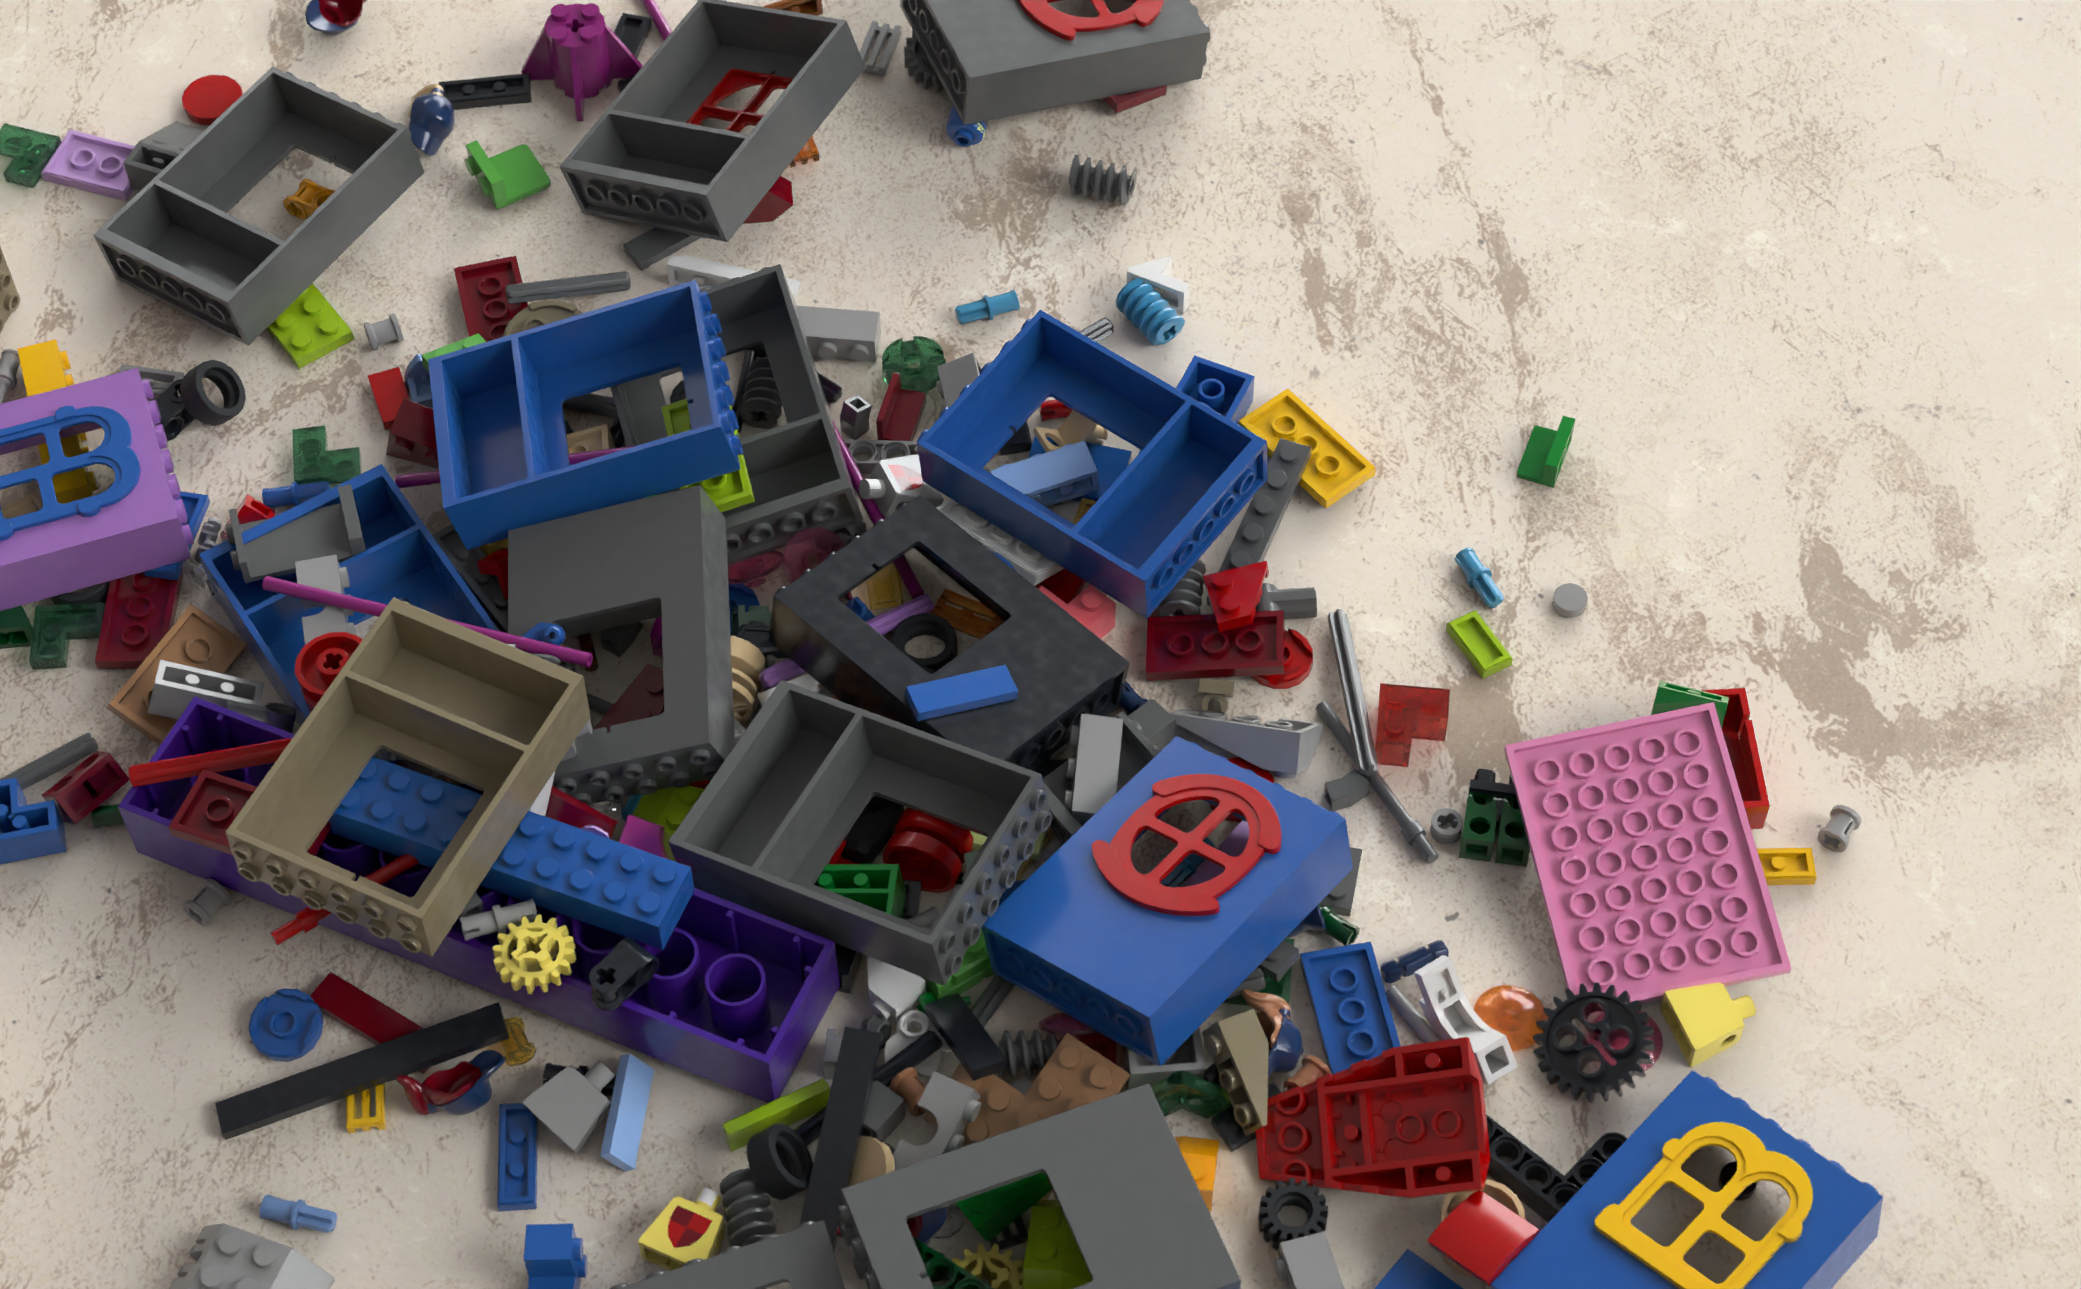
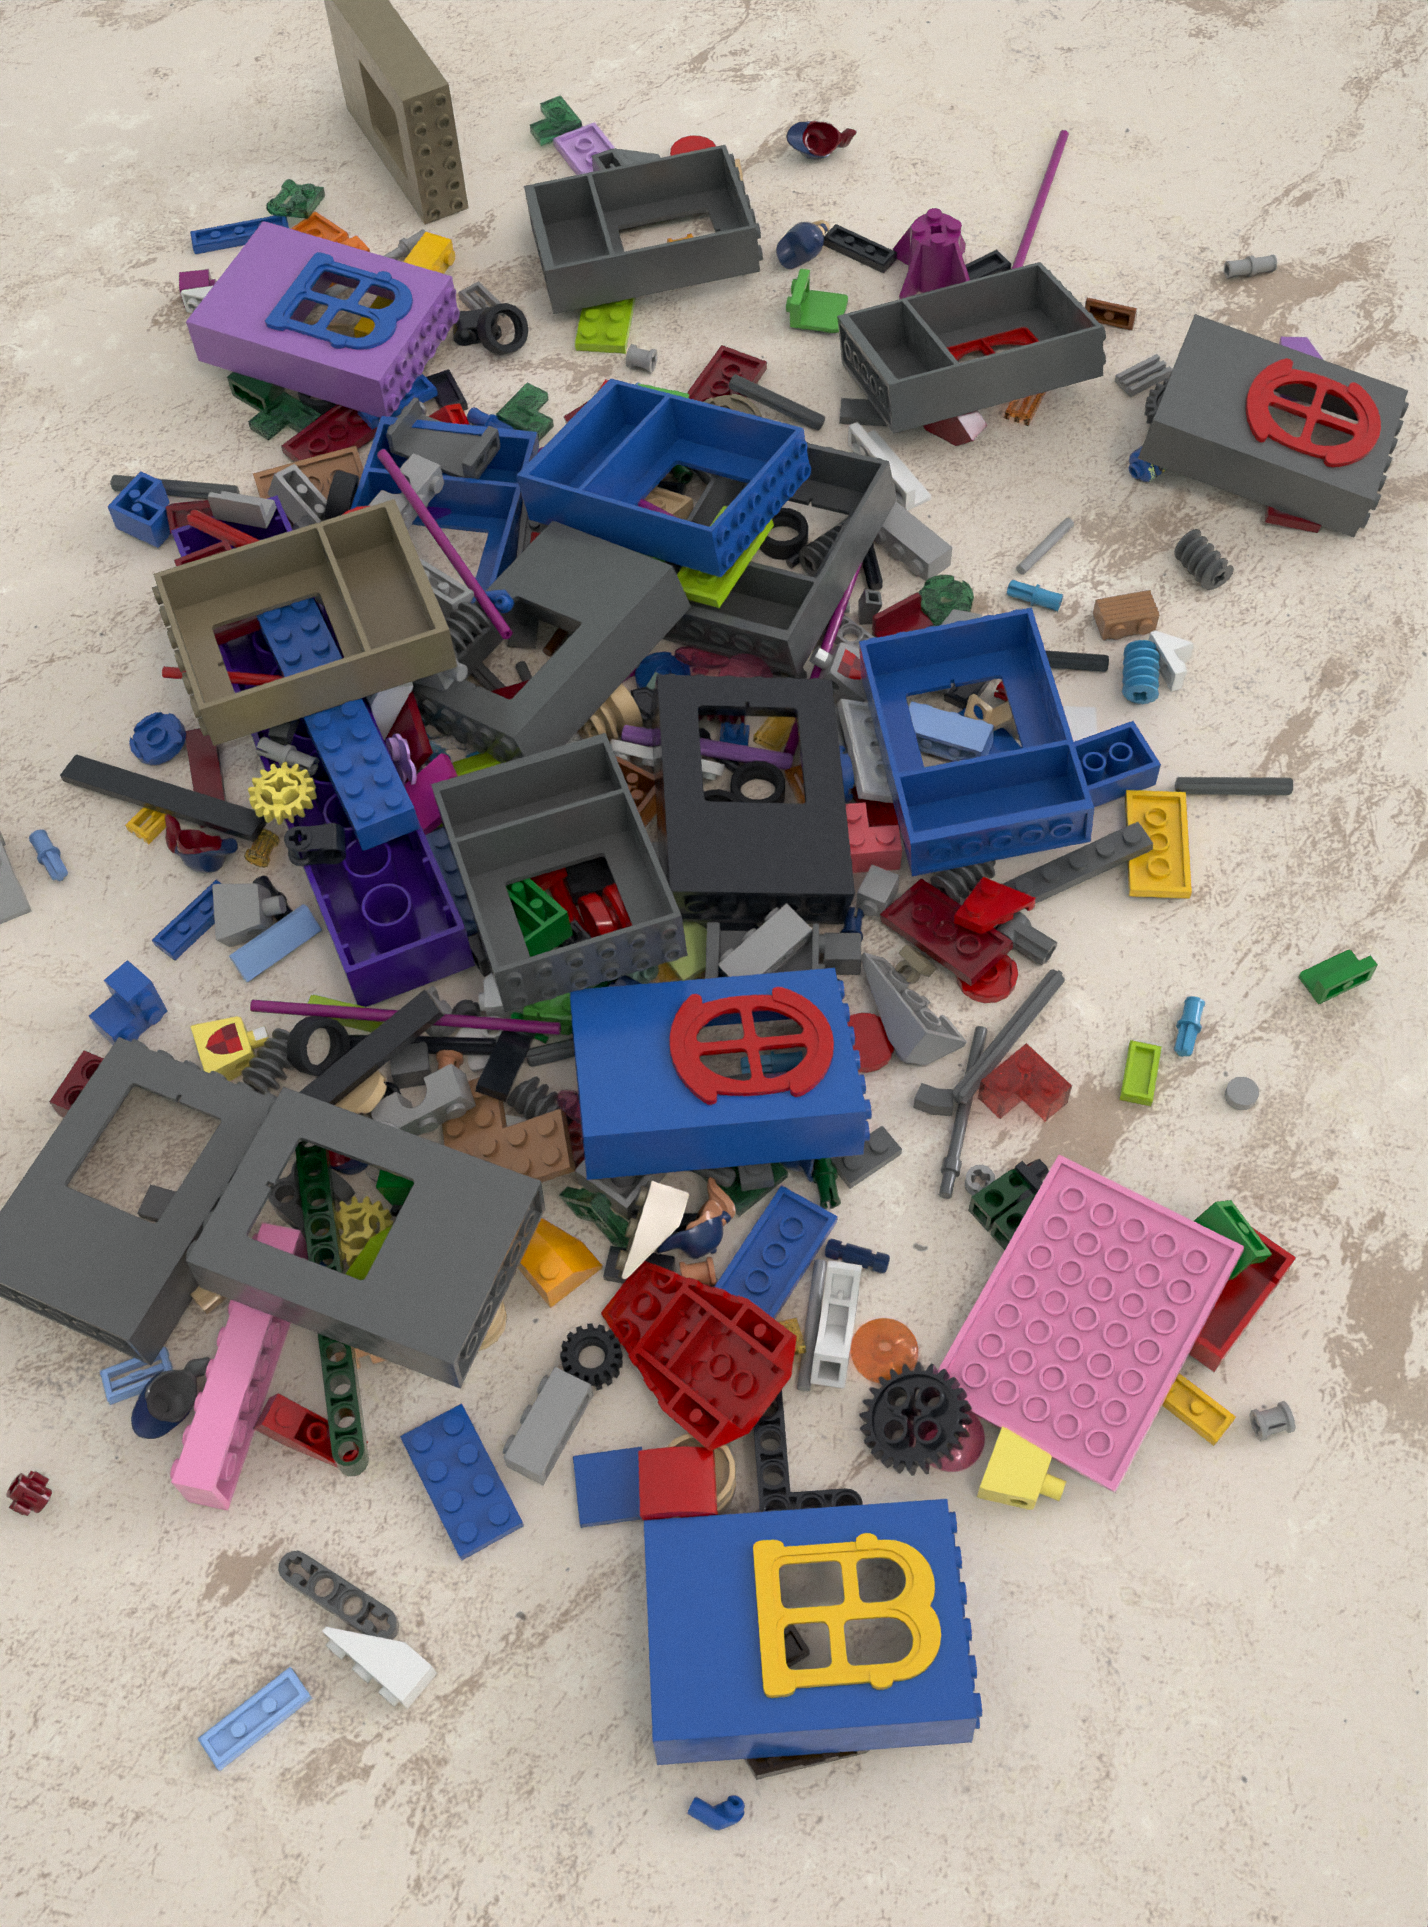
camera: 45 degrees right, 5 degrees up
(179, 731) = (242, 508): none -> light grey panel
(221, 495) = (447, 390): none -> black tile
(252, 657) = (341, 494): none -> black tyre
(825, 1079) = (382, 1015): none -> magenta piece
(949, 258) = (1045, 545): none -> light grey bar
(961, 692) = (709, 827): blue tile -> none
(1085, 271) = (1126, 615): none -> medium nougat brick
(1128, 646) = (877, 891): none -> light grey brick
(1316, 356) = (1235, 785): none -> dark grey axle

